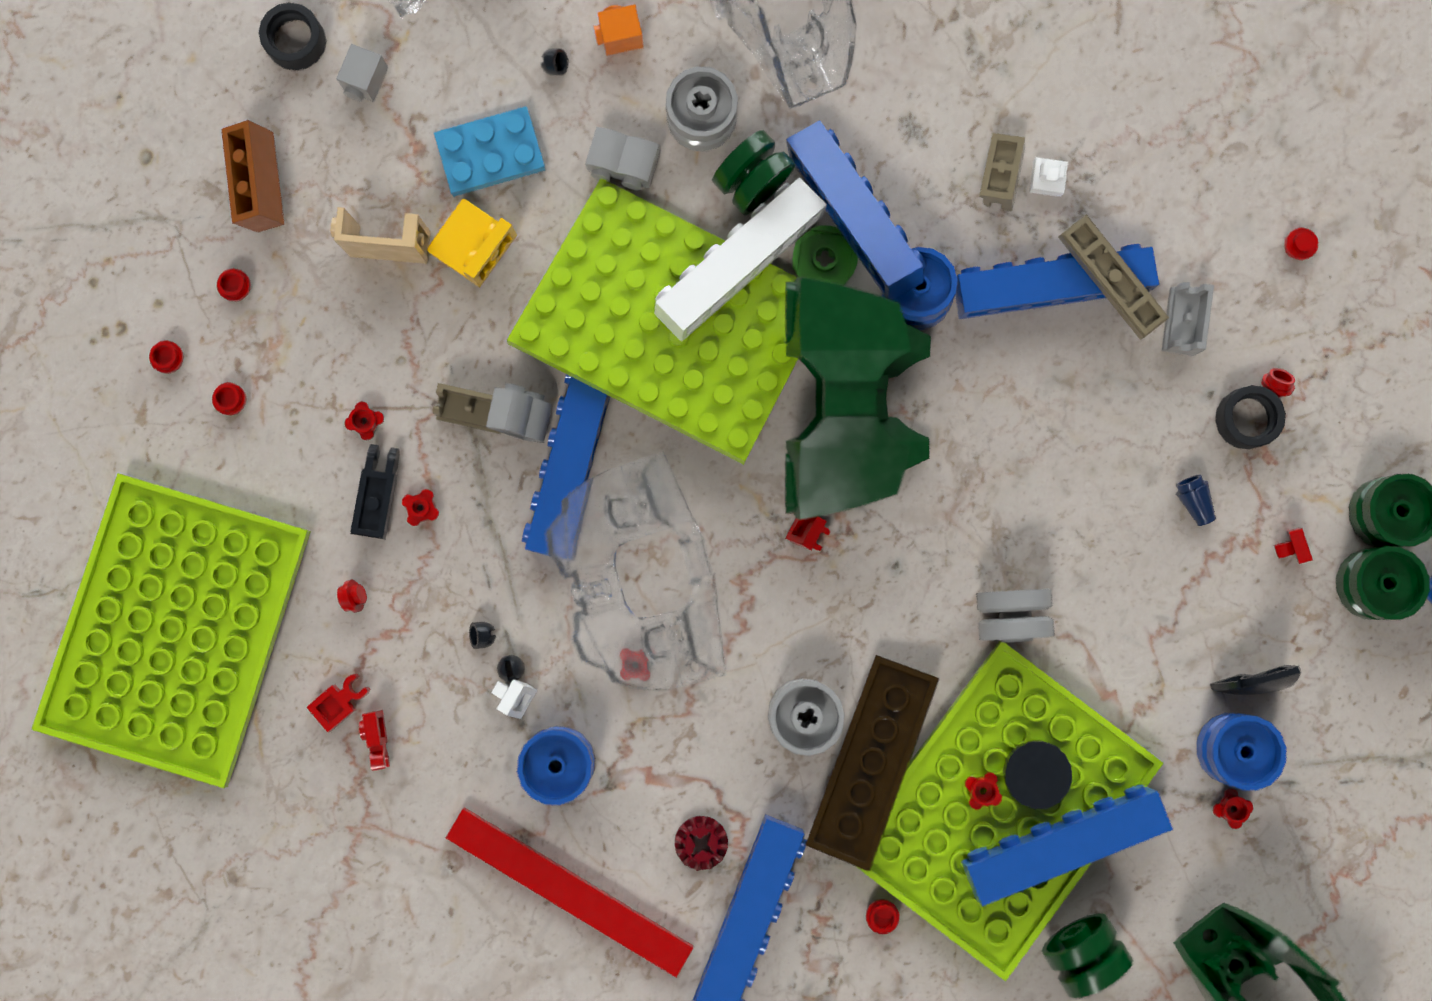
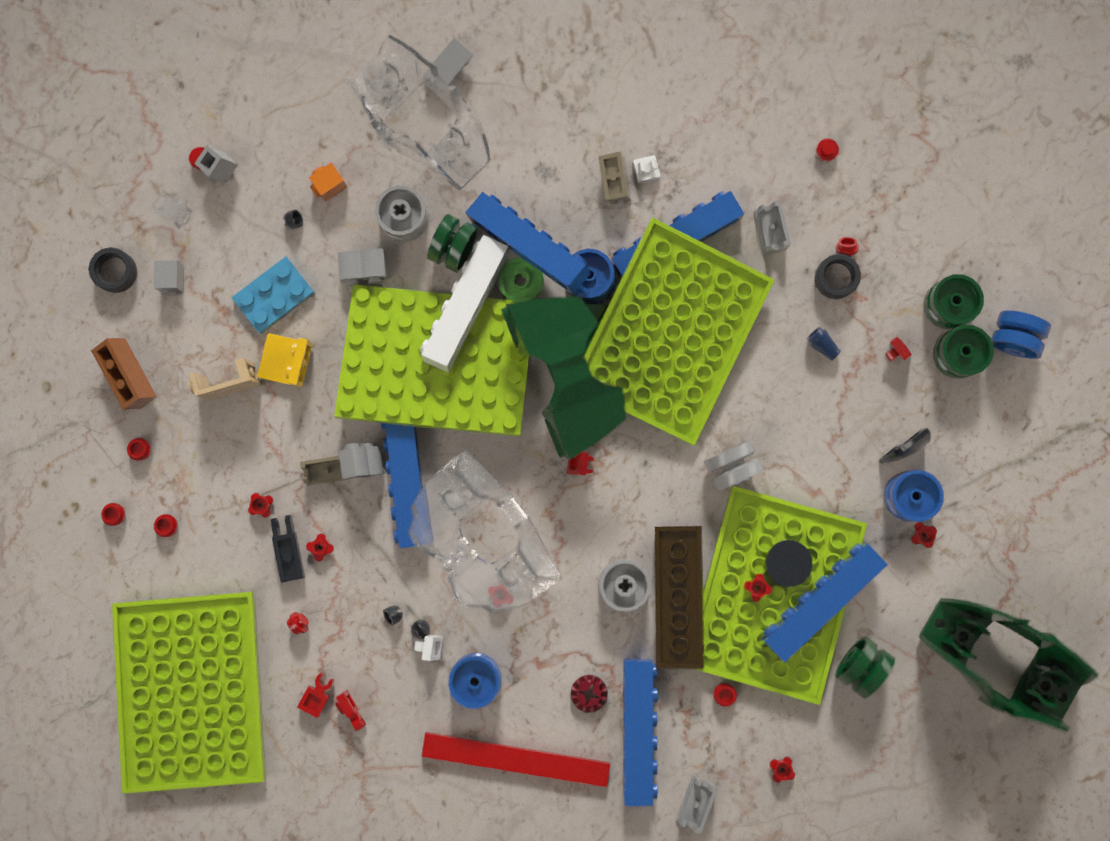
camera: 15 degrees left, 0 degrees up
(1009, 401) = (675, 329): none -> lime plate
(1113, 277) = (712, 220): dark tan plate -> none

